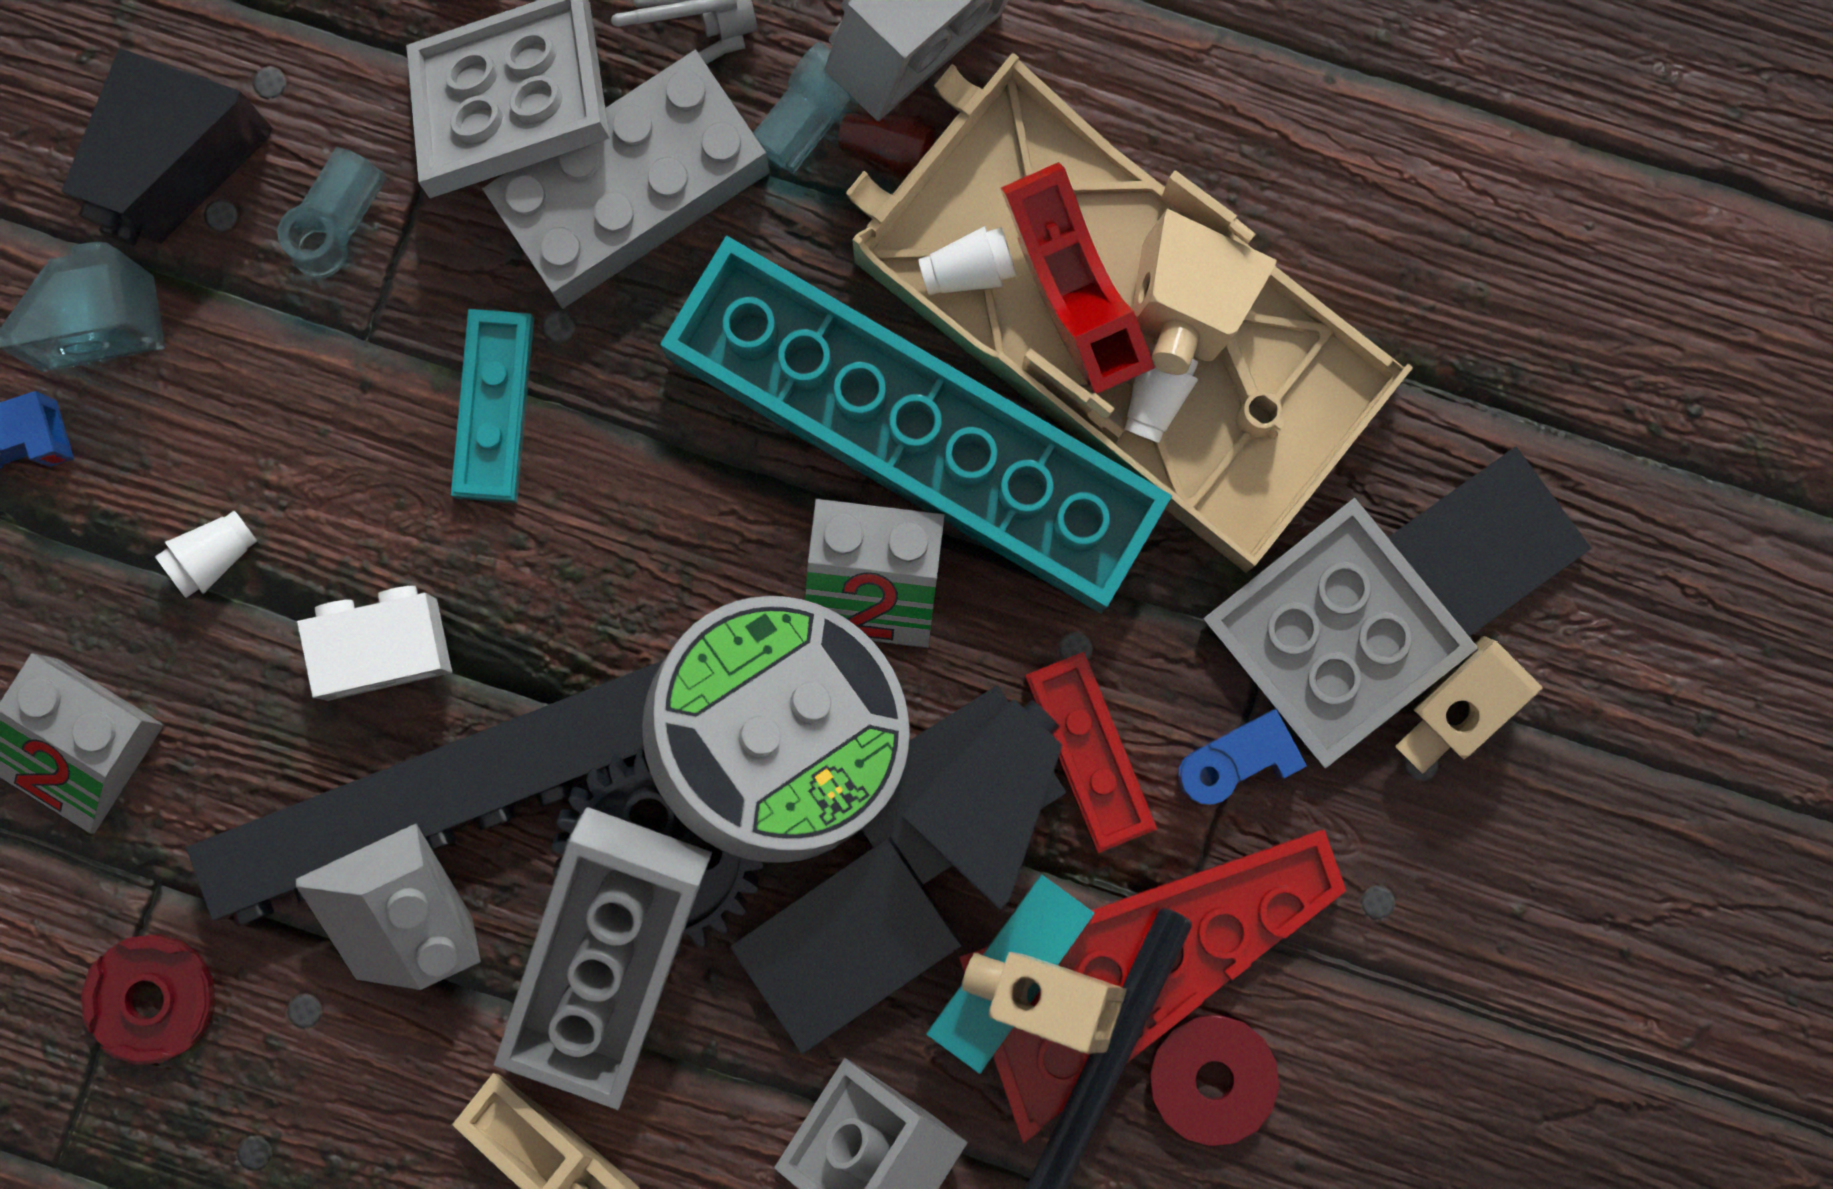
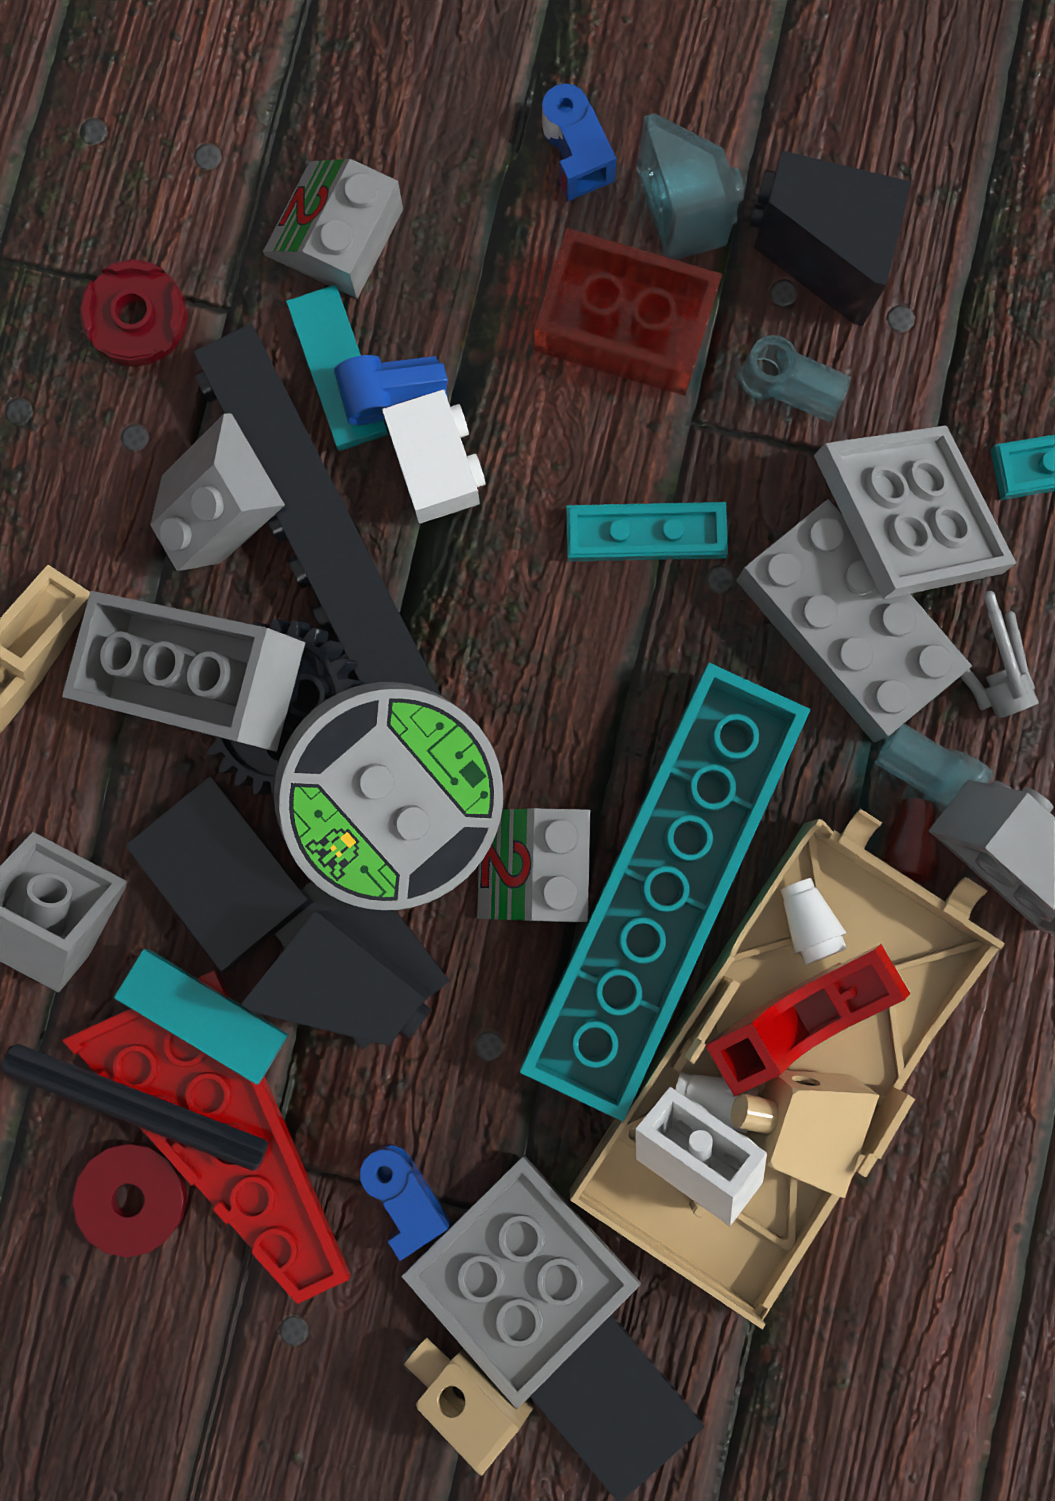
camera: 90 degrees right, 0 degrees up
(205, 553) = (497, 312): white cone -> none
(227, 397) = (625, 311): none -> clear red brick
(248, 754) = (326, 343): none -> teal tile
(282, 705) = (370, 385): none -> blue piece
(1072, 1005) = (165, 1075): tan torso -> none
(1092, 753) = (399, 1068): red tile -> none
(1216, 412) = (700, 1155): none -> white brick

